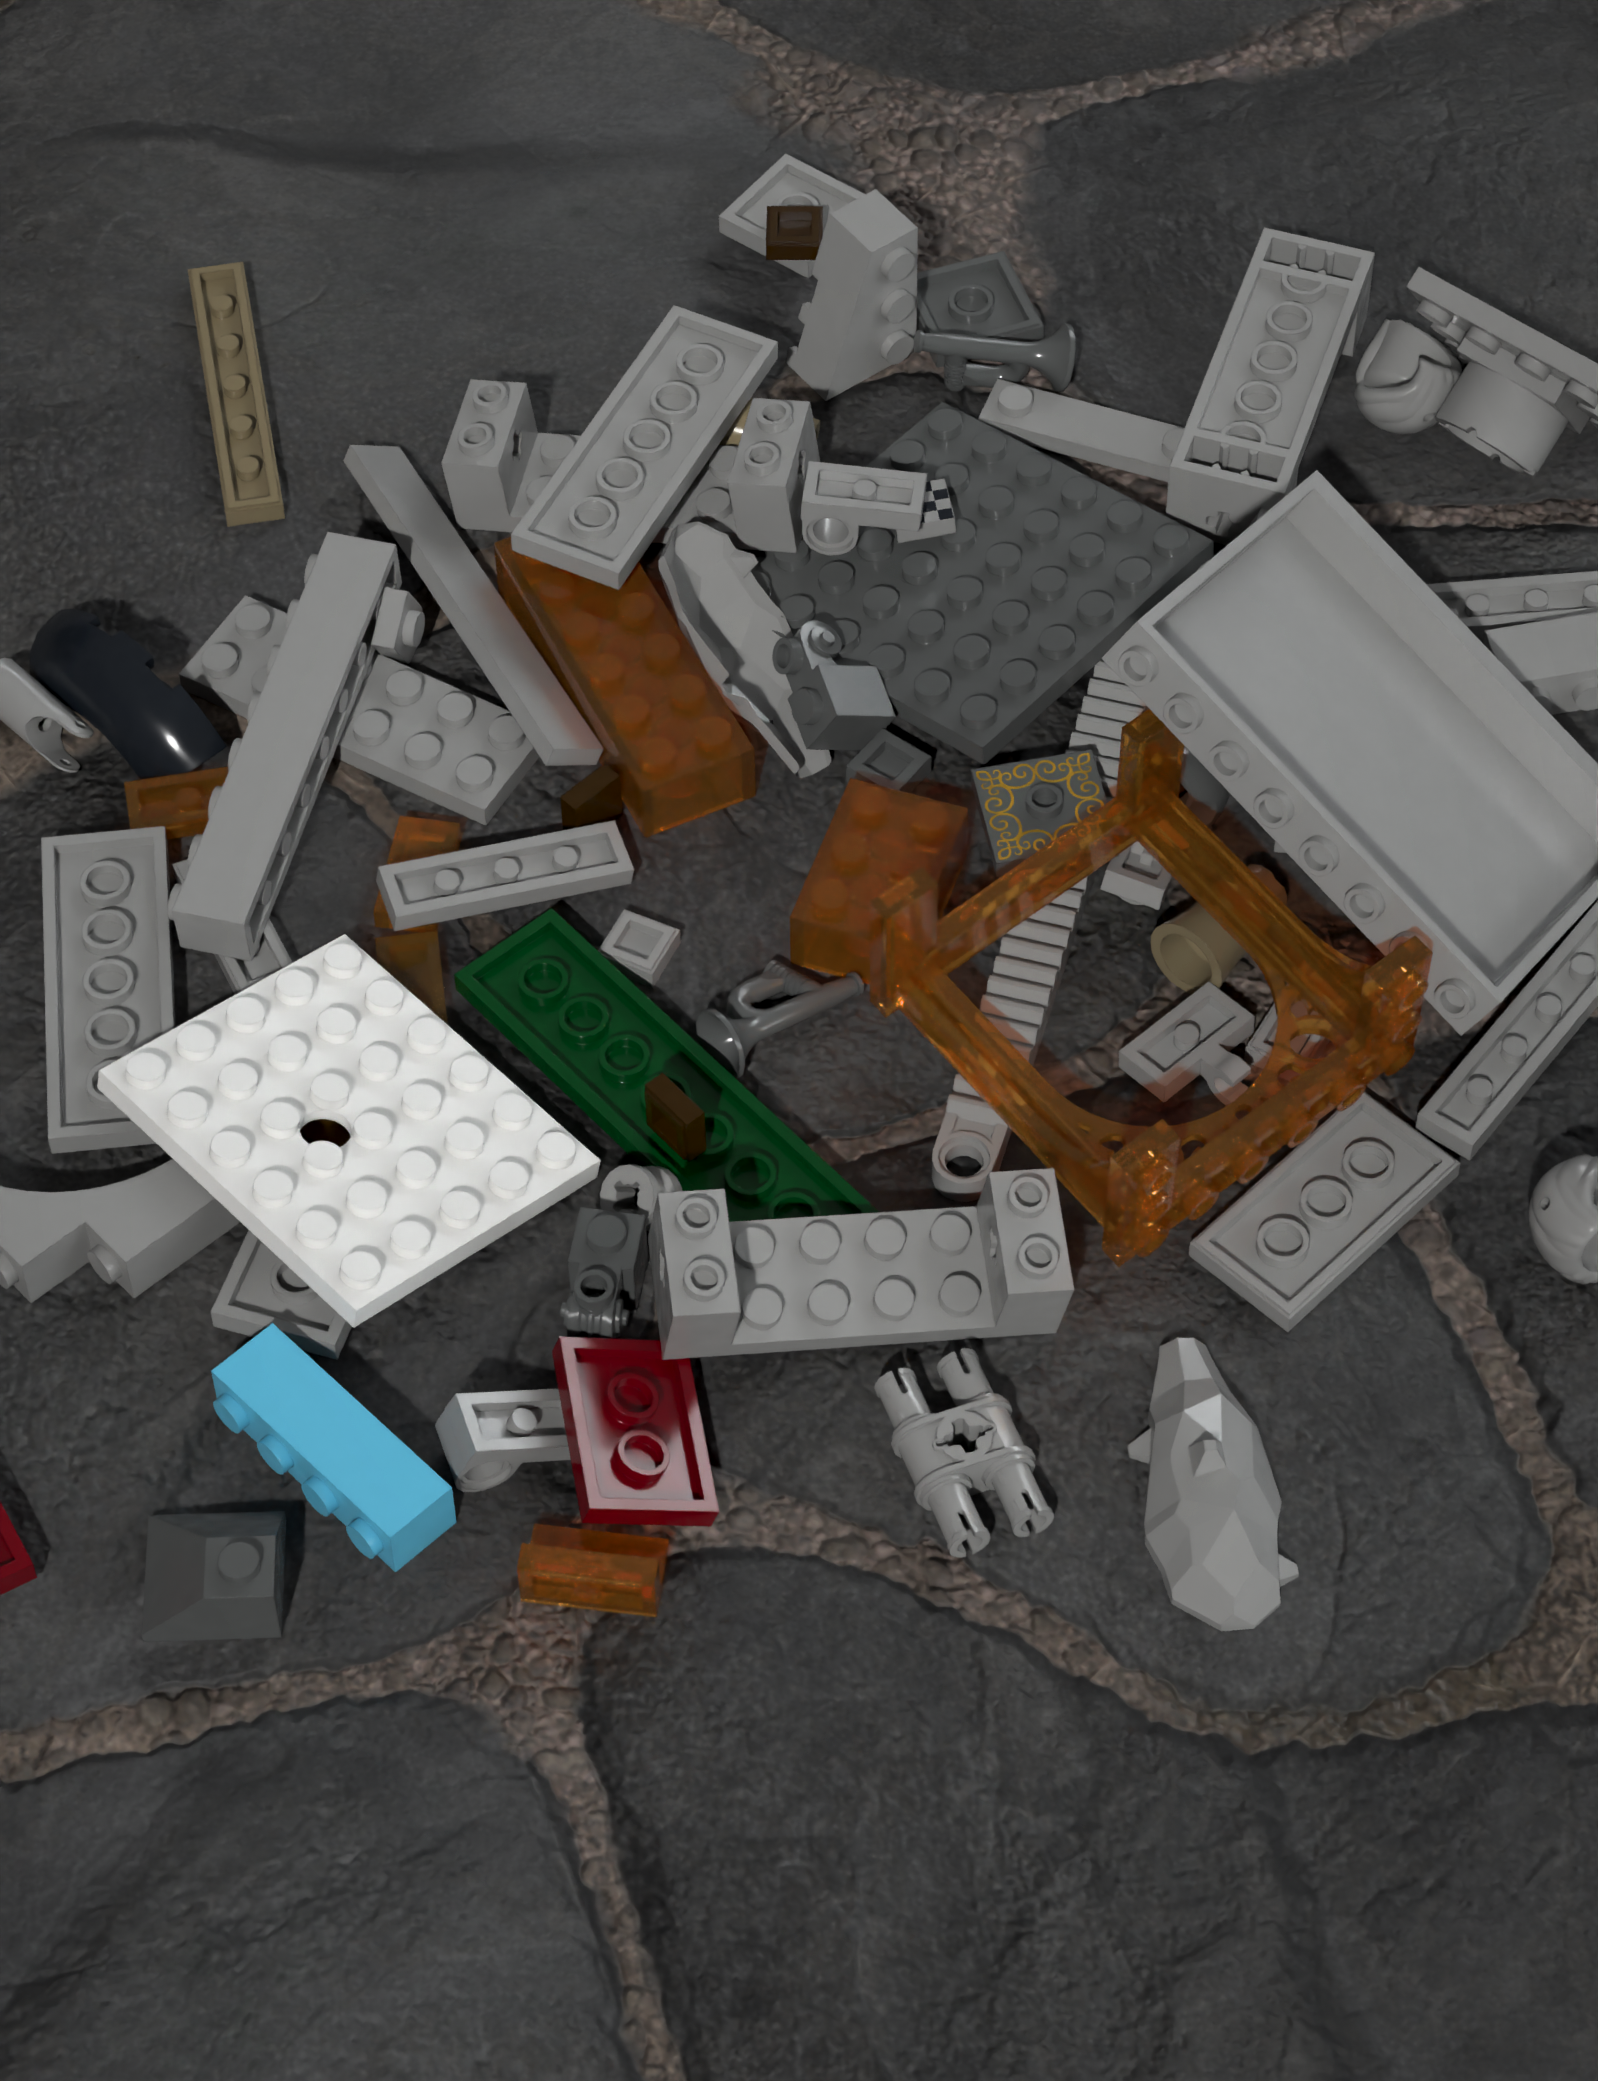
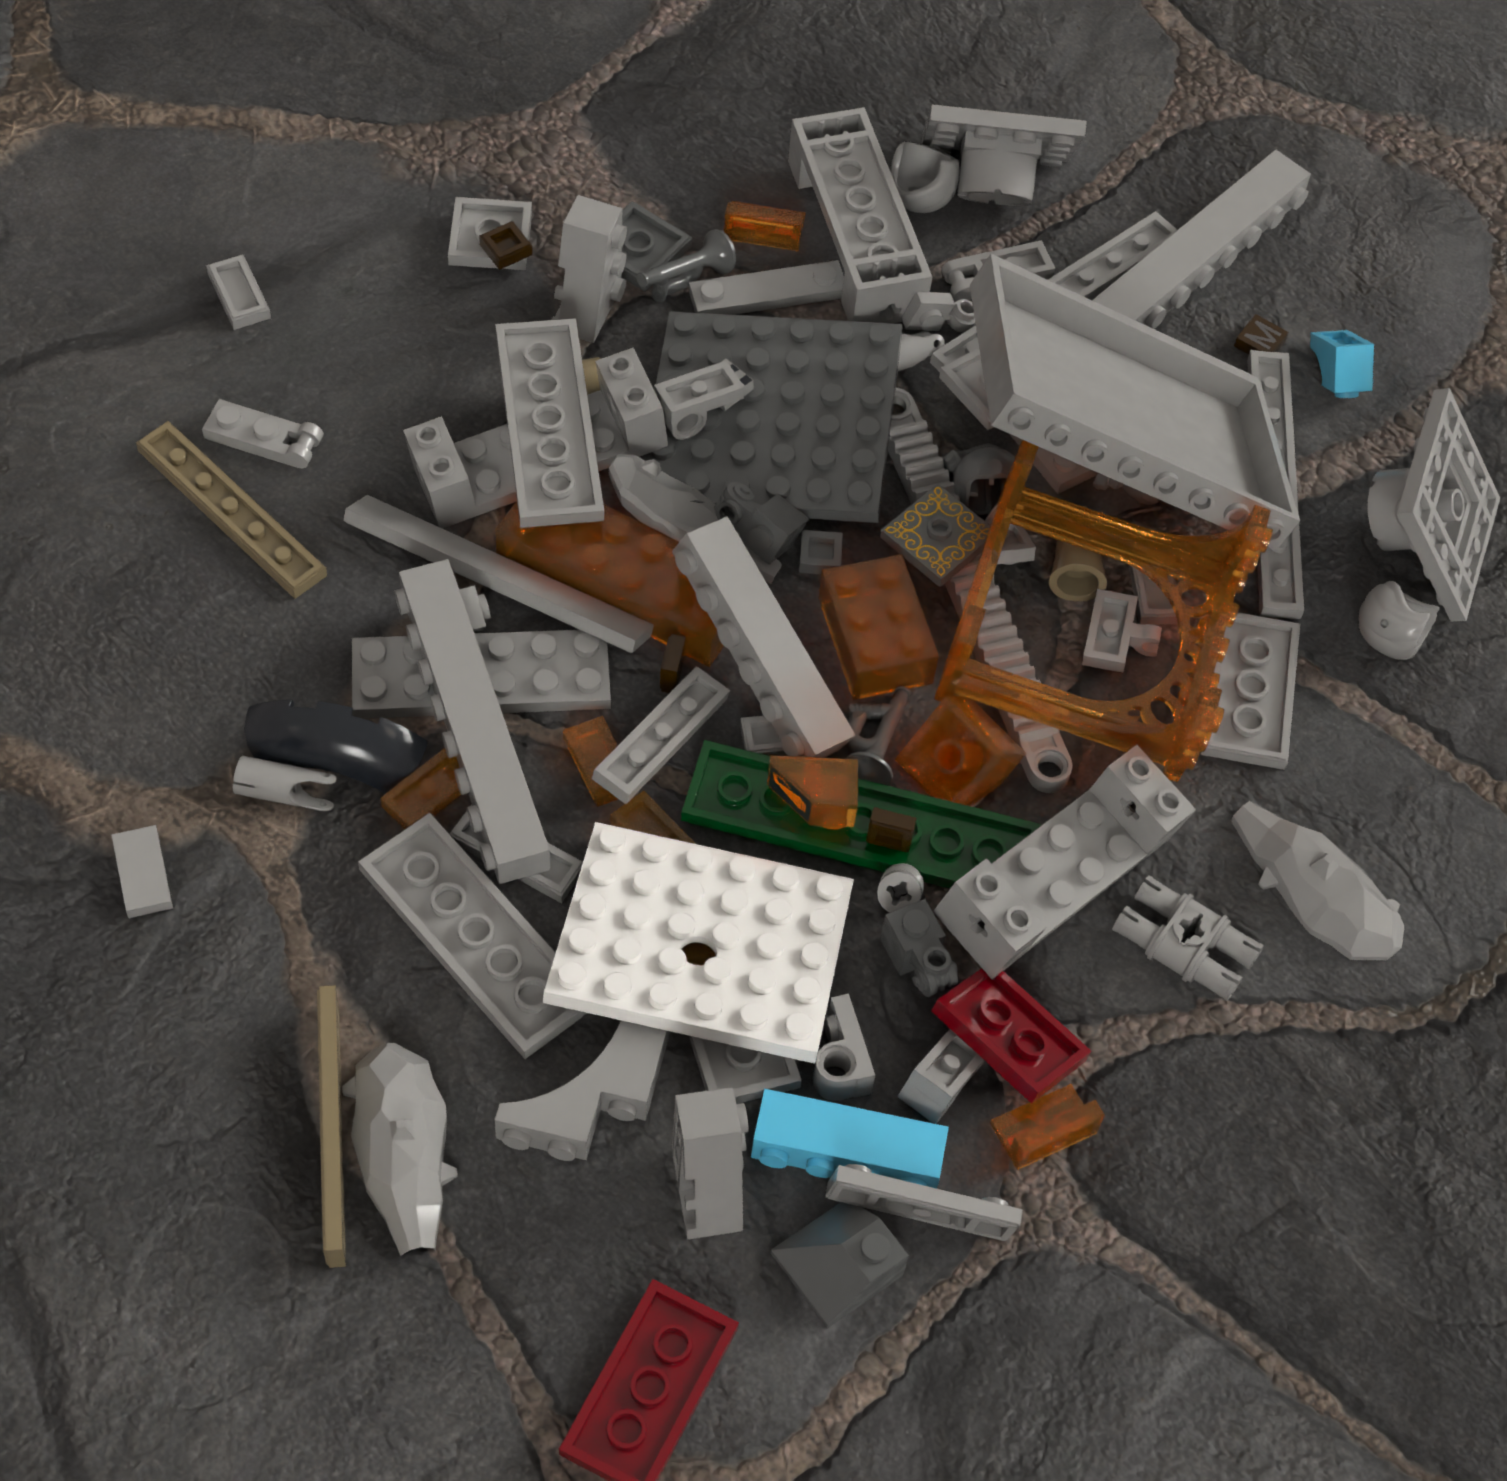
camera: 40 degrees left, 5 degrees up
(137, 1355) = (709, 1161): none -> light grey wedge
(290, 1495) = (983, 1217): none -> light grey plate
(338, 325) = (262, 434): none -> light grey plate
(417, 1344) = (845, 1051): none -> light grey plate
(446, 156) = (238, 292): none -> light grey tile
(631, 1025) = (817, 788): none -> clear orange slope
(694, 823) = (762, 641): none -> light grey brick
(859, 1083) = (960, 752): none -> clear orange slope
(1152, 351) = (764, 225): none -> clear orange panel
(1438, 542) = (1028, 256): none -> light grey plate

